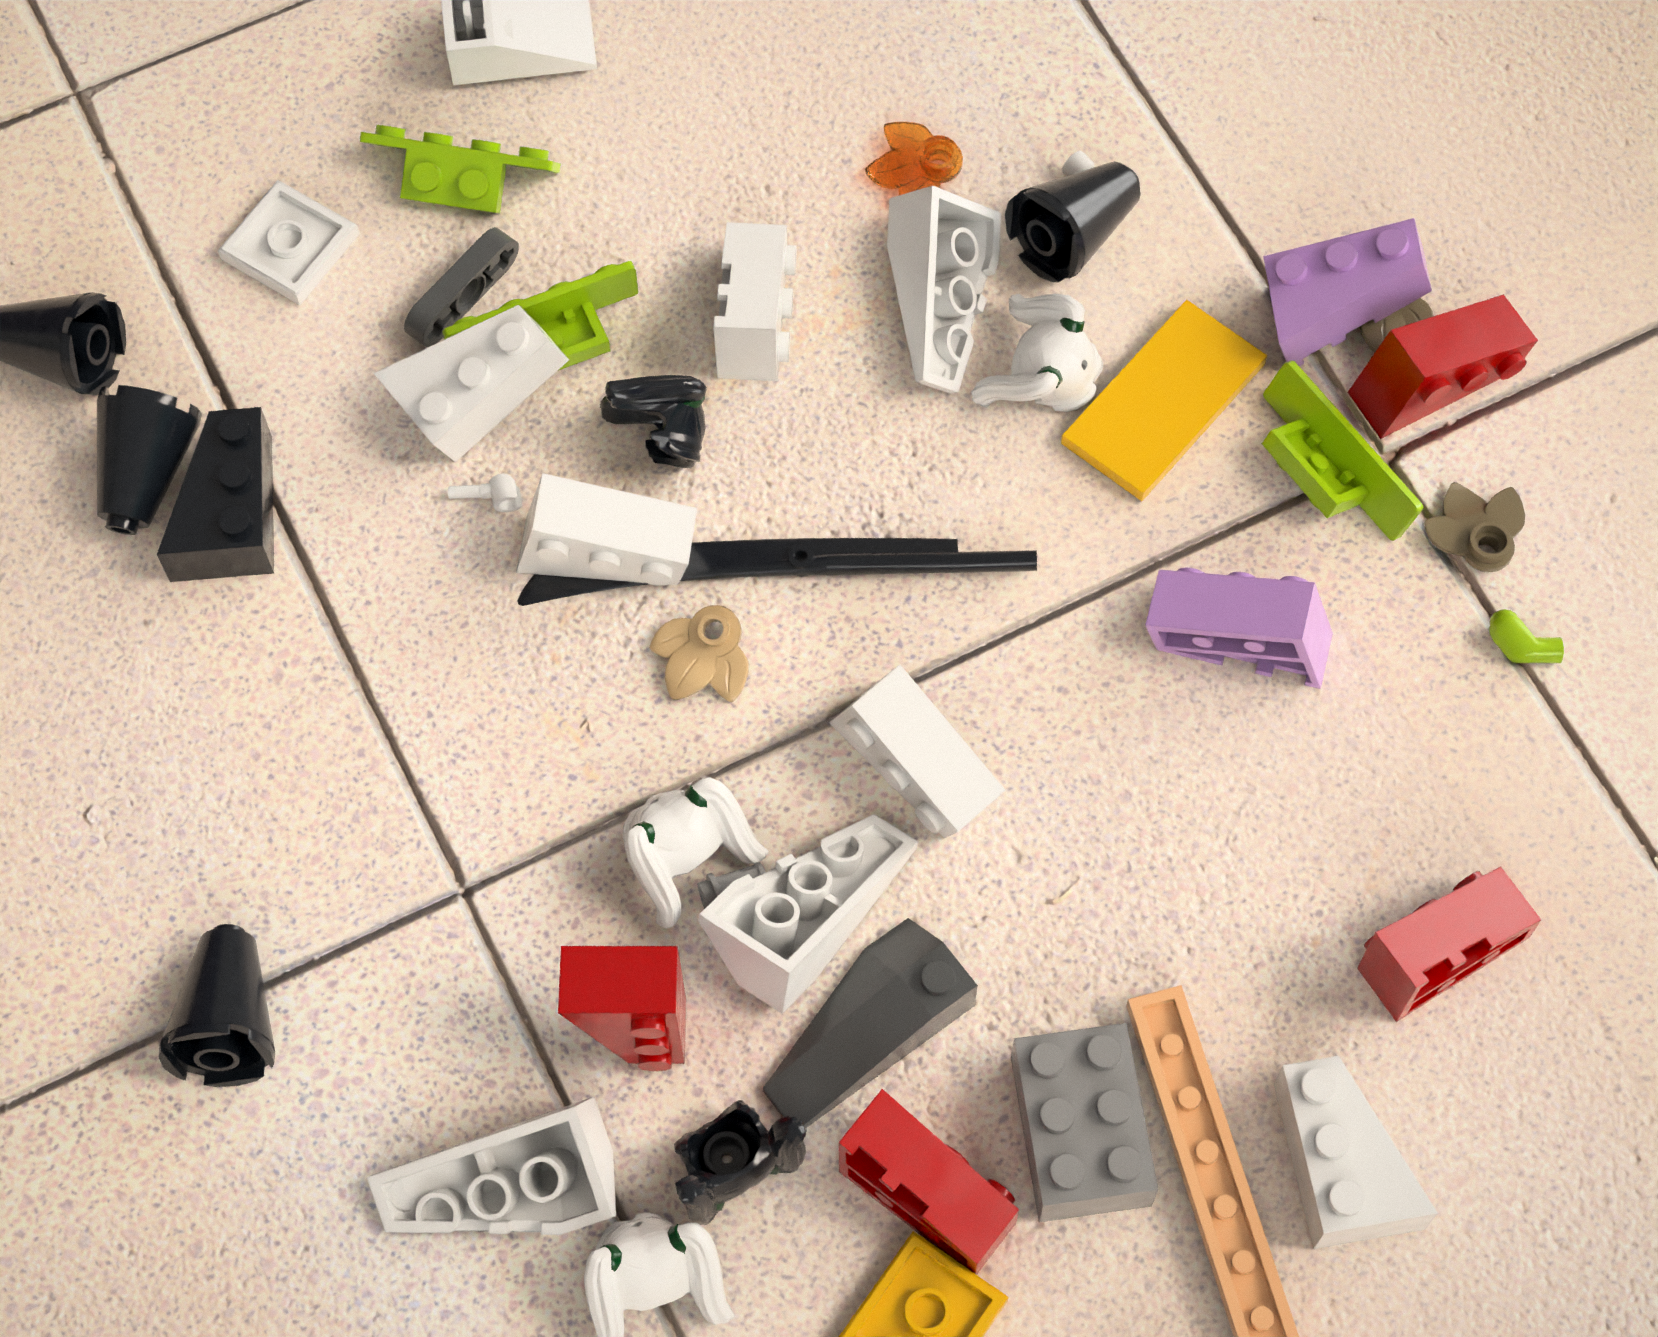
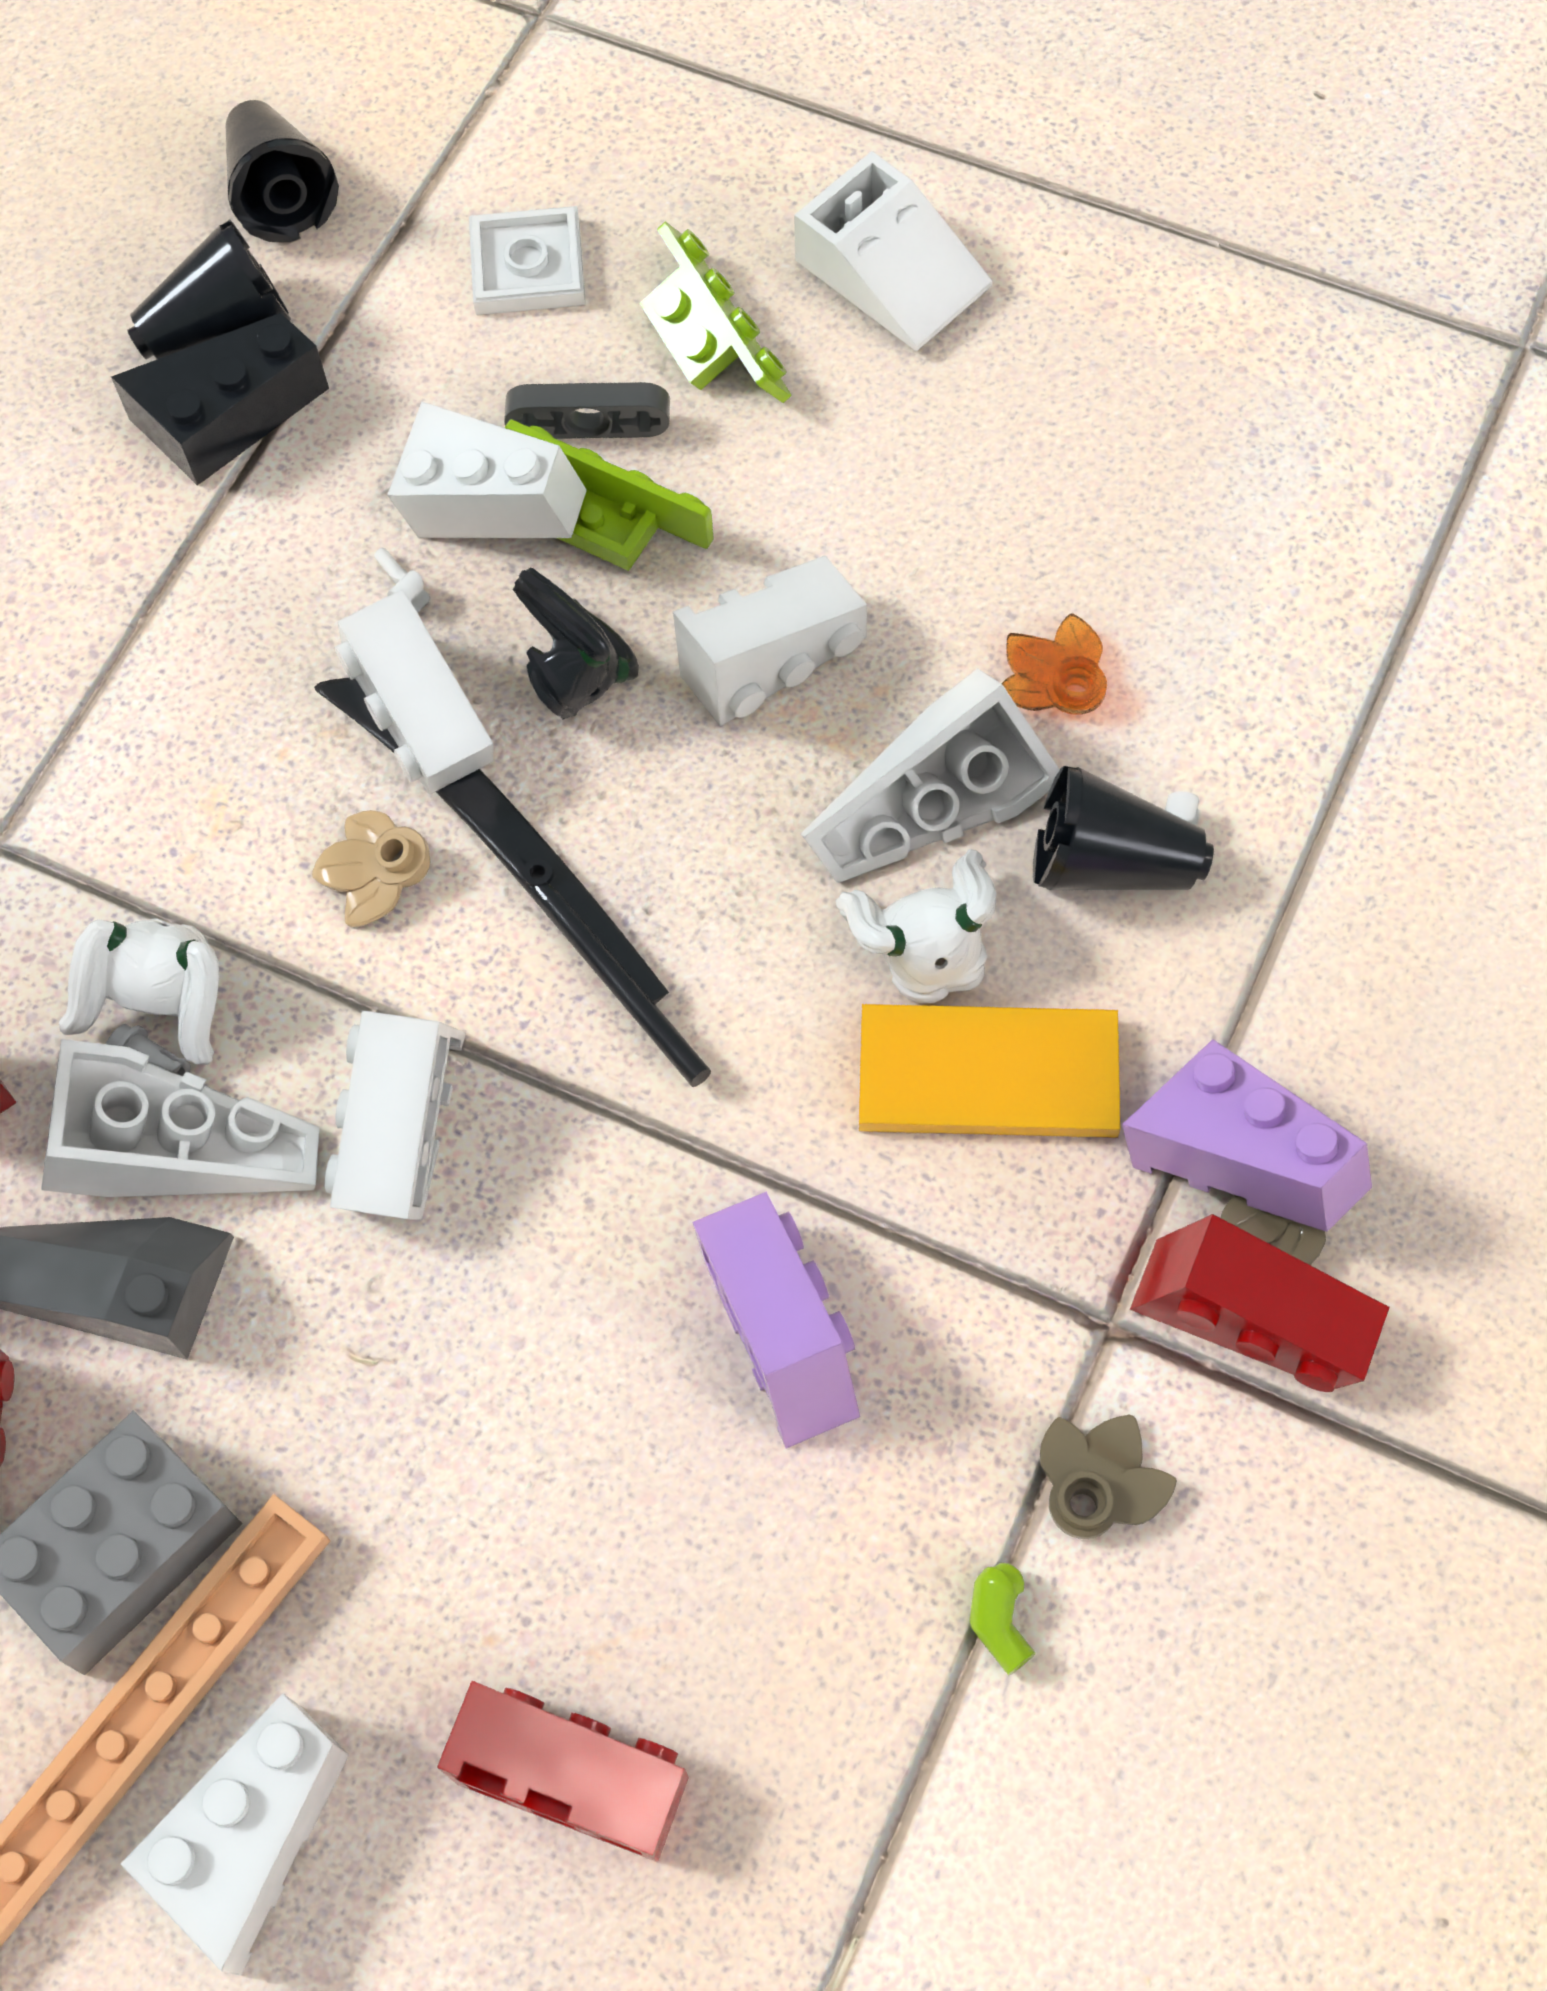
camera: 55 degrees right, 0 degrees up
(1331, 456) = (1044, 1270): lime bracket -> none

